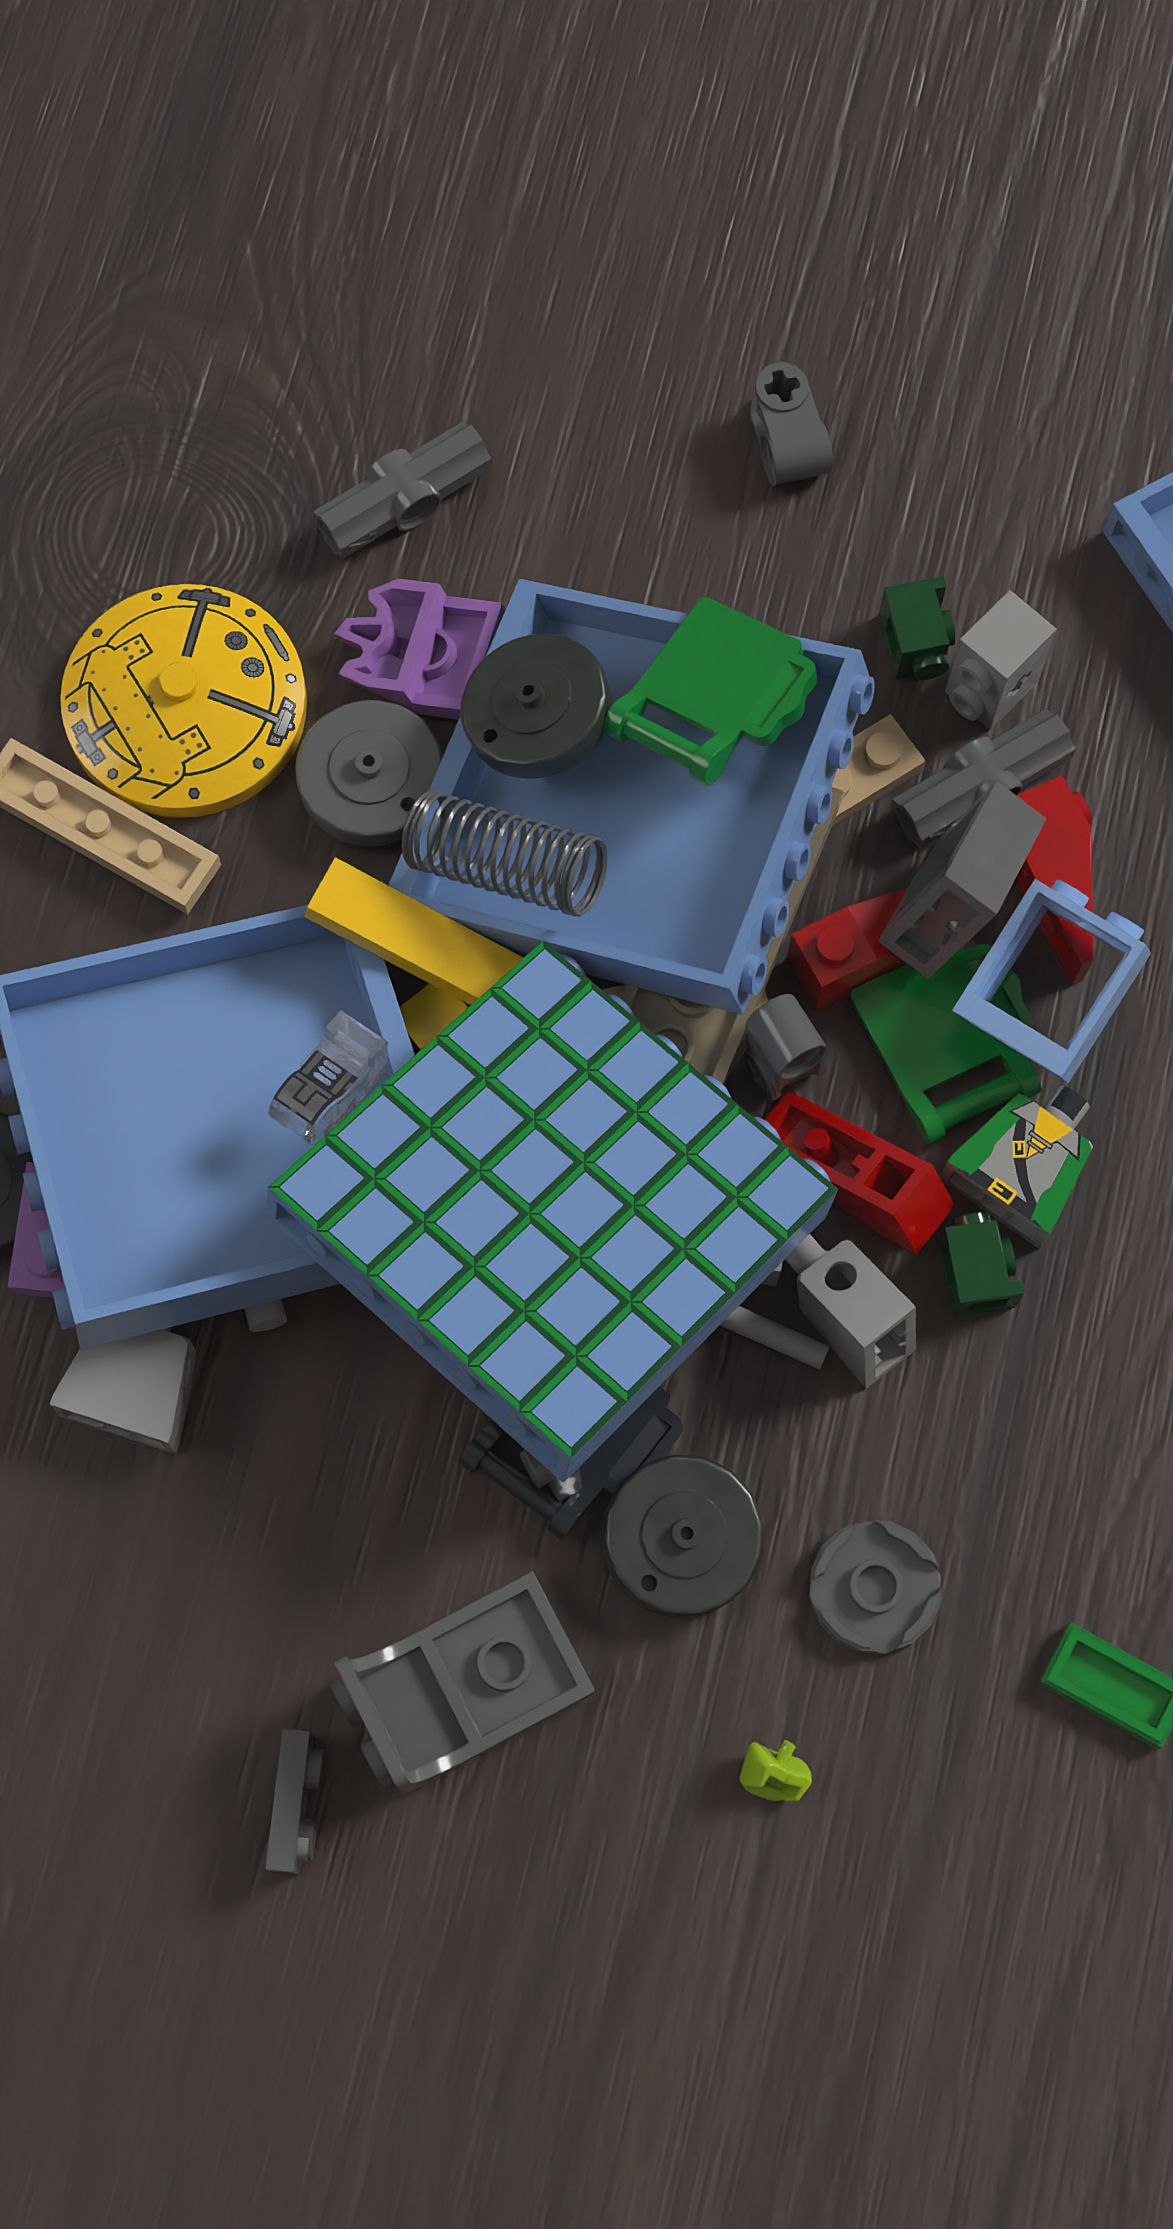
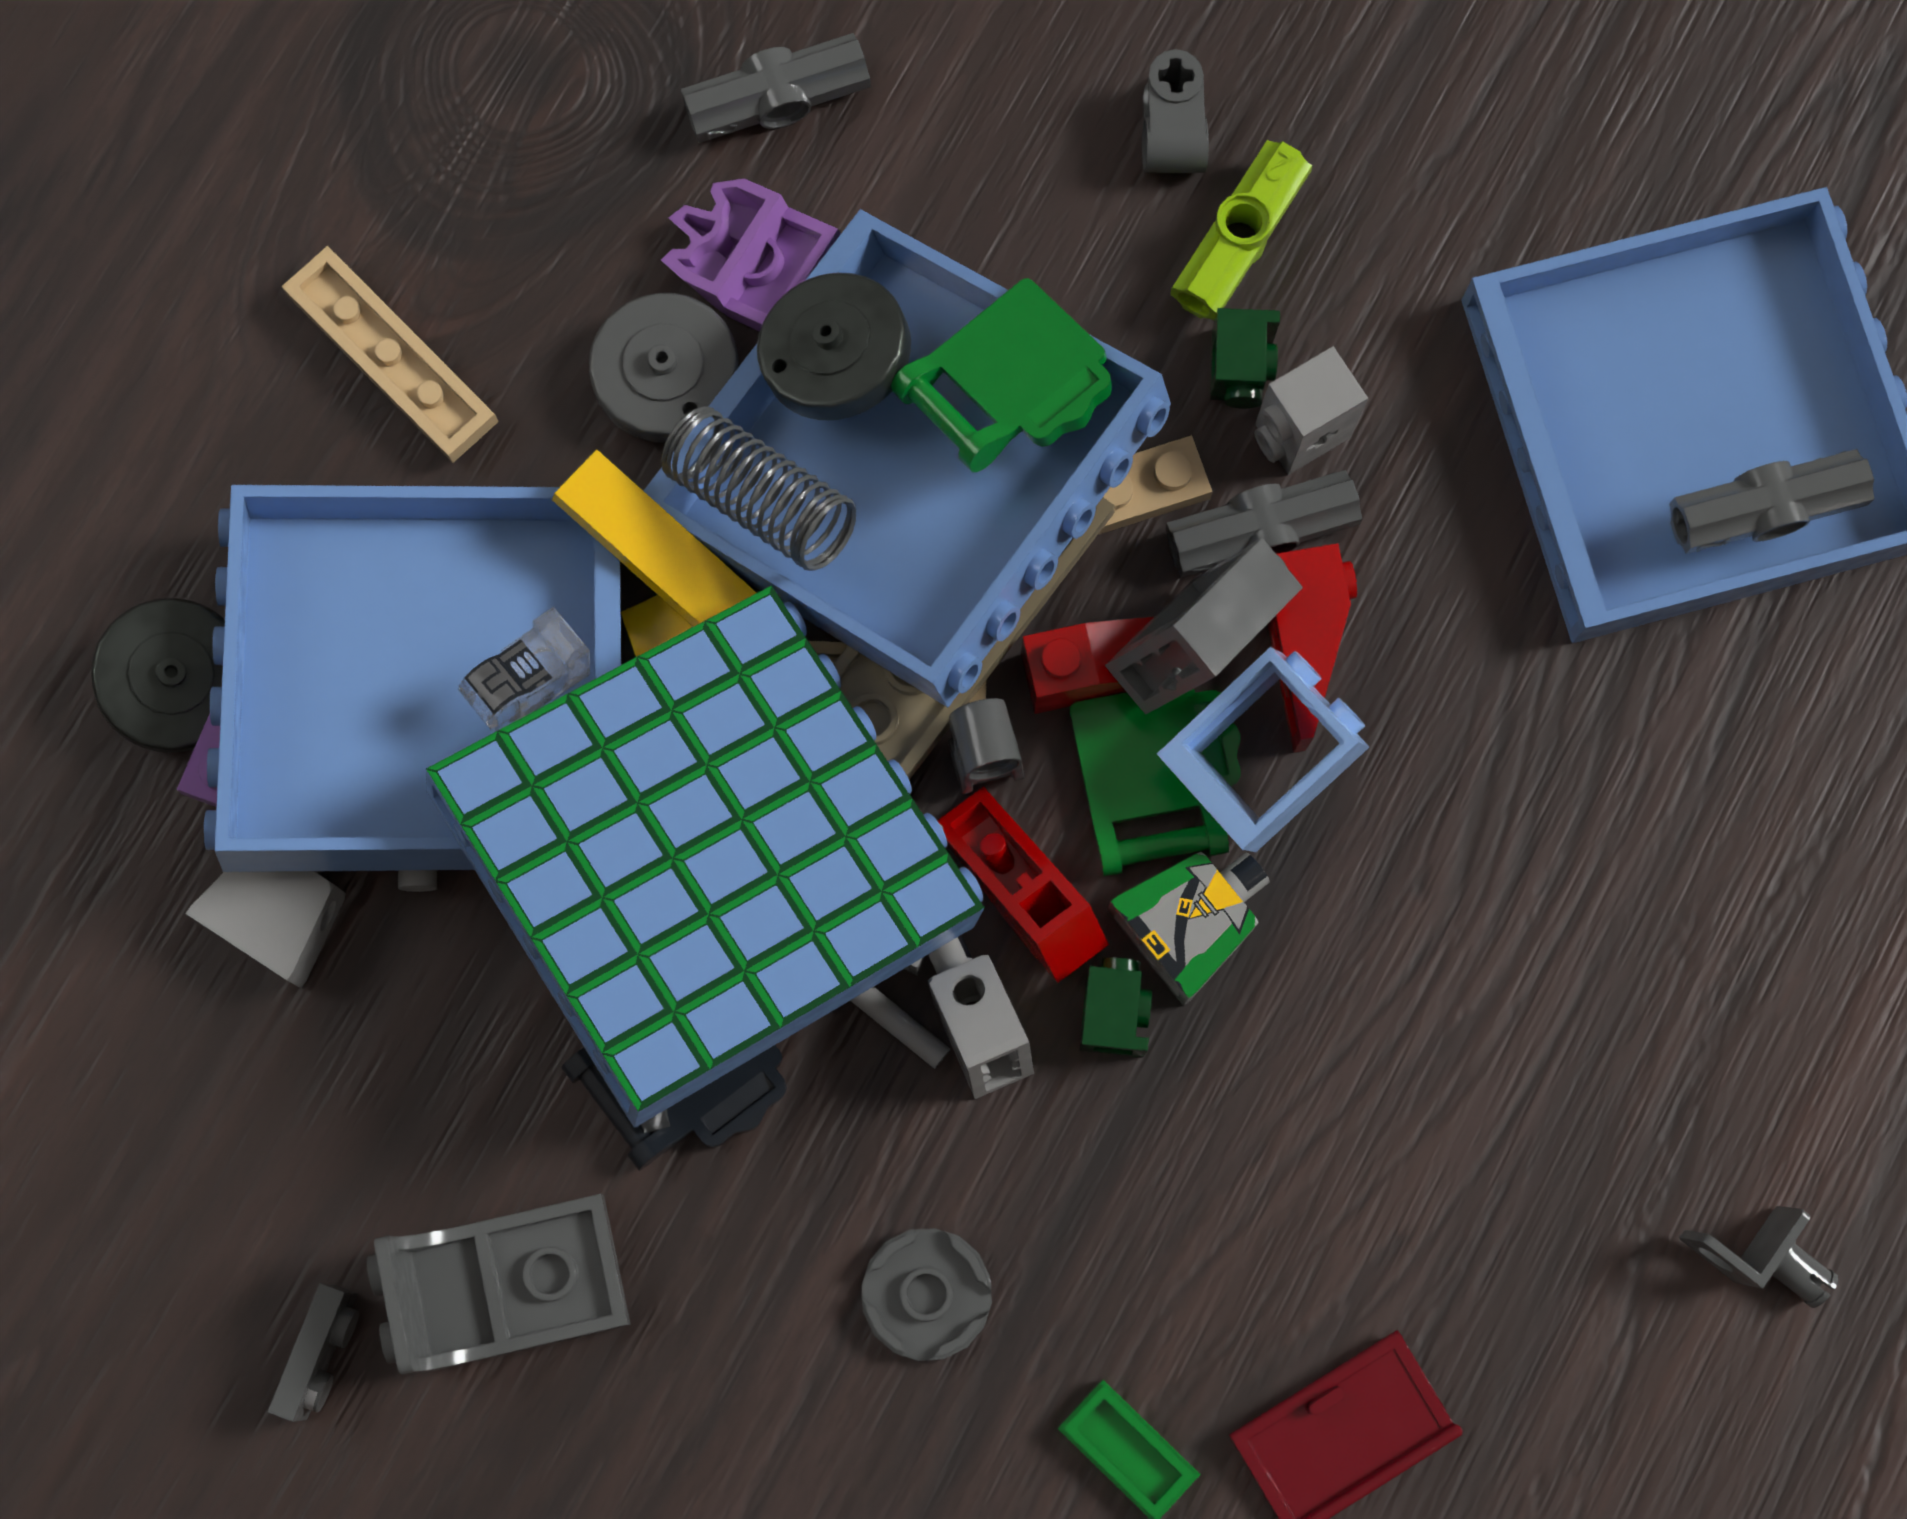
camera: 15 degrees right, 5 degrees up
(184, 700) = (507, 247): yellow dish -> none
(682, 1536) = (753, 1198): pearl dark grey wheel -> none
(774, 1773) = (778, 1446): lime piece -> none
(875, 541) = (1258, 202): none -> lime piece

